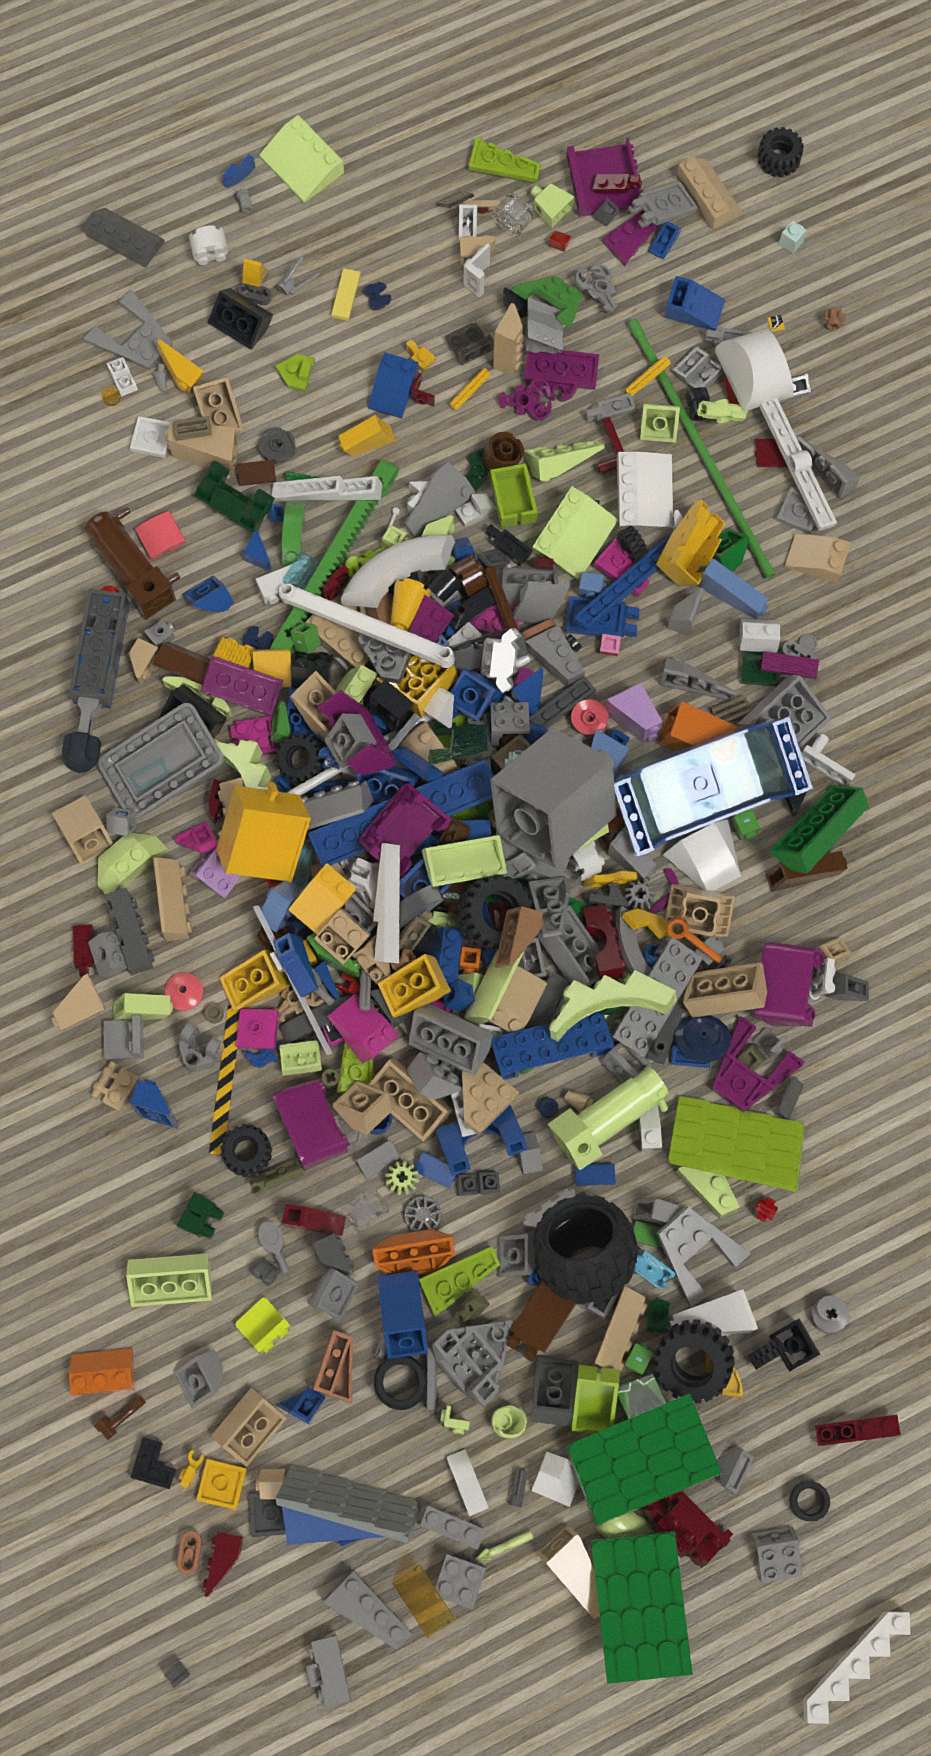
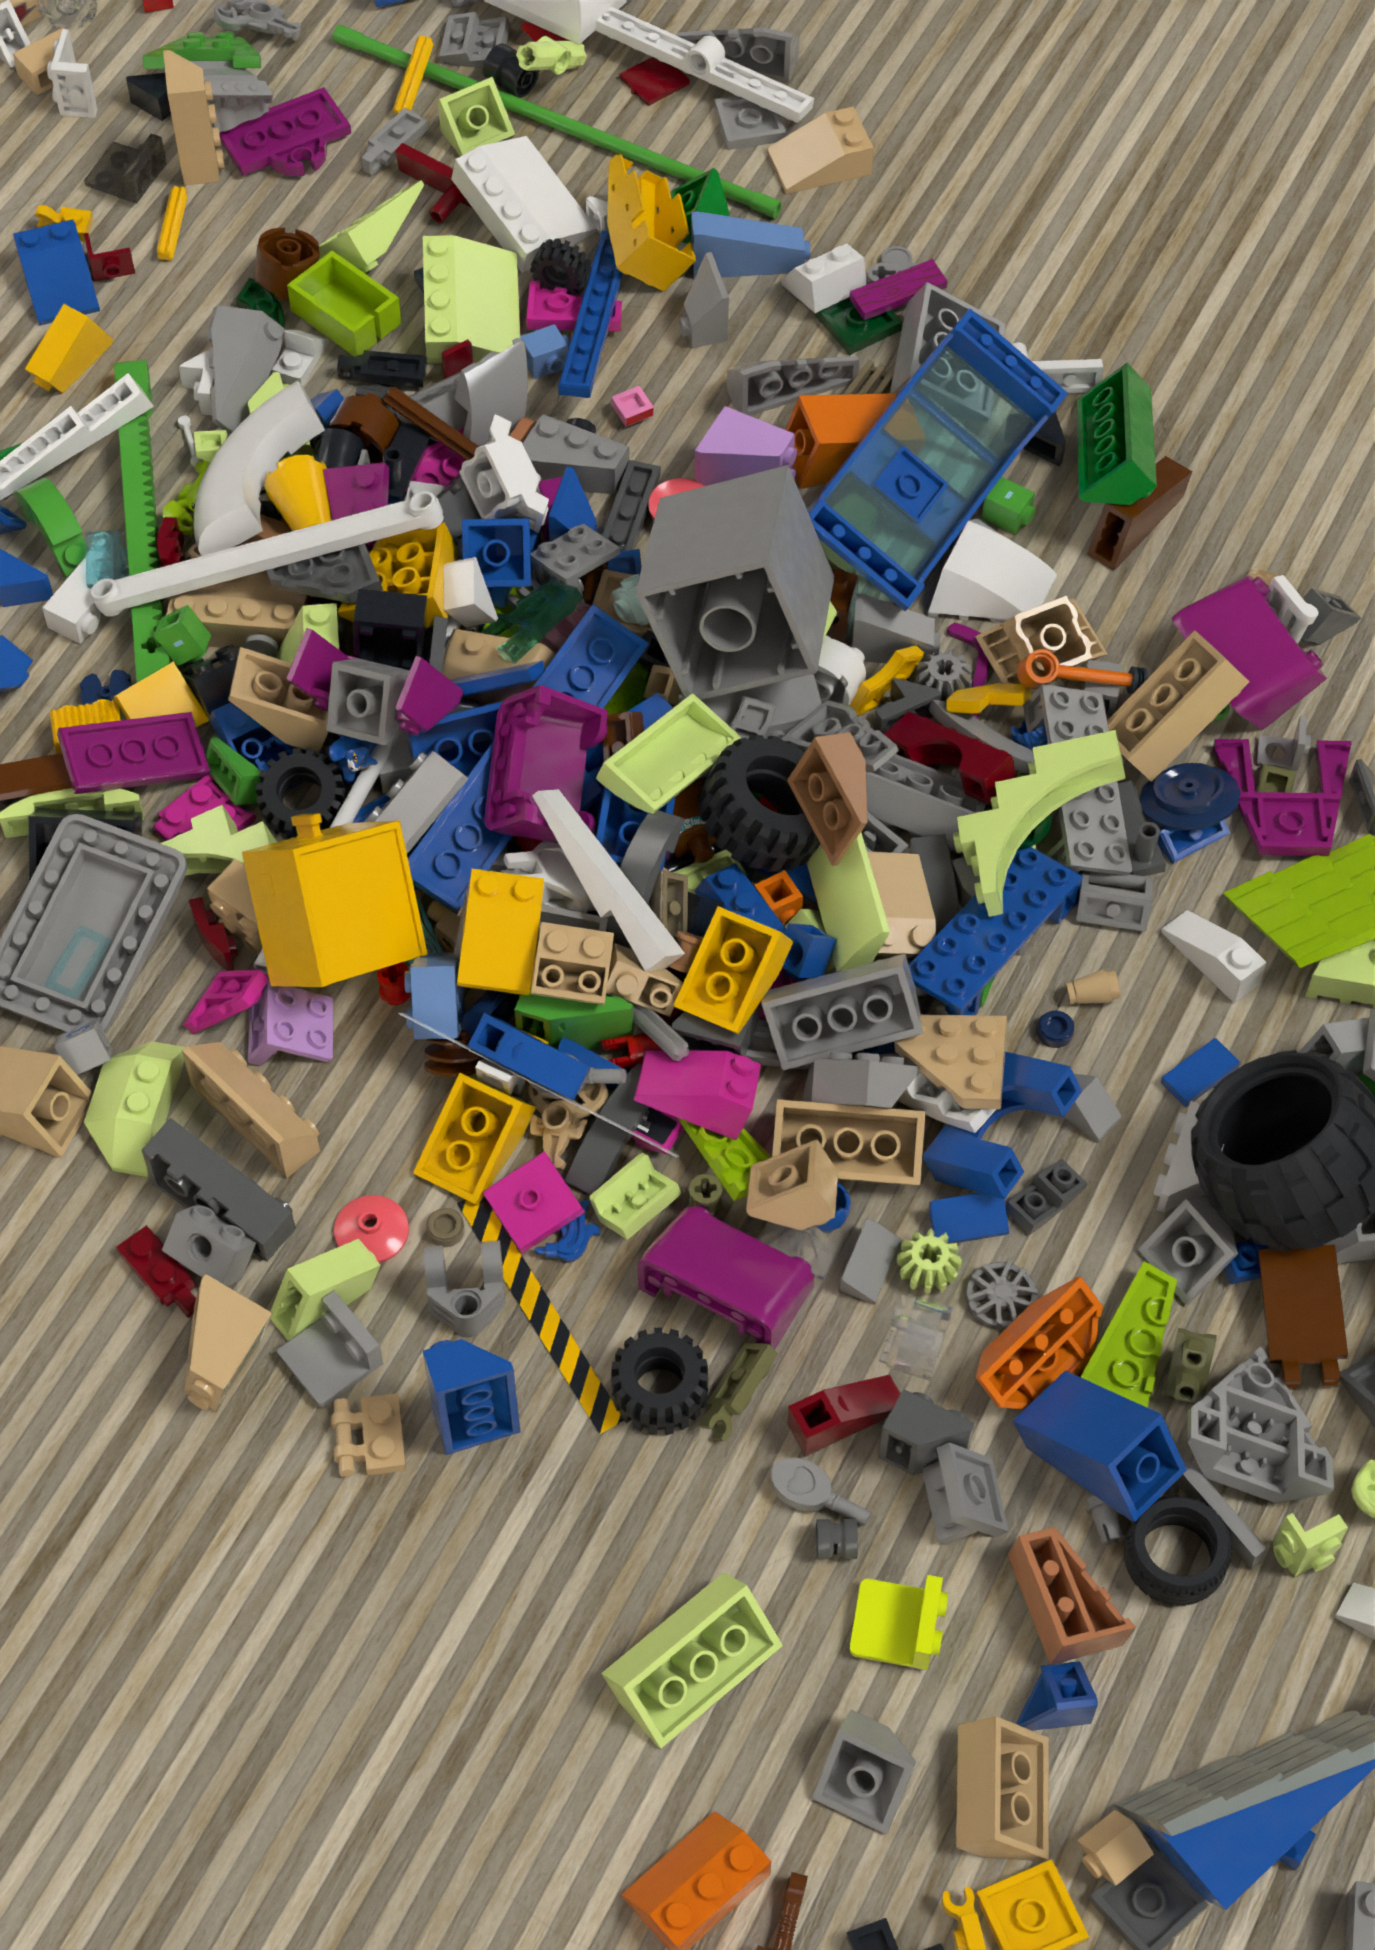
camera: 35 degrees left, 15 degrees down
(198, 1225) = (659, 1531): dark green hips -> none
(529, 399) = (268, 187): magenta animal -> none
(584, 1132) = (1142, 1019): yellowish green piece -> none
(612, 623) = (611, 379): blue tile -> none

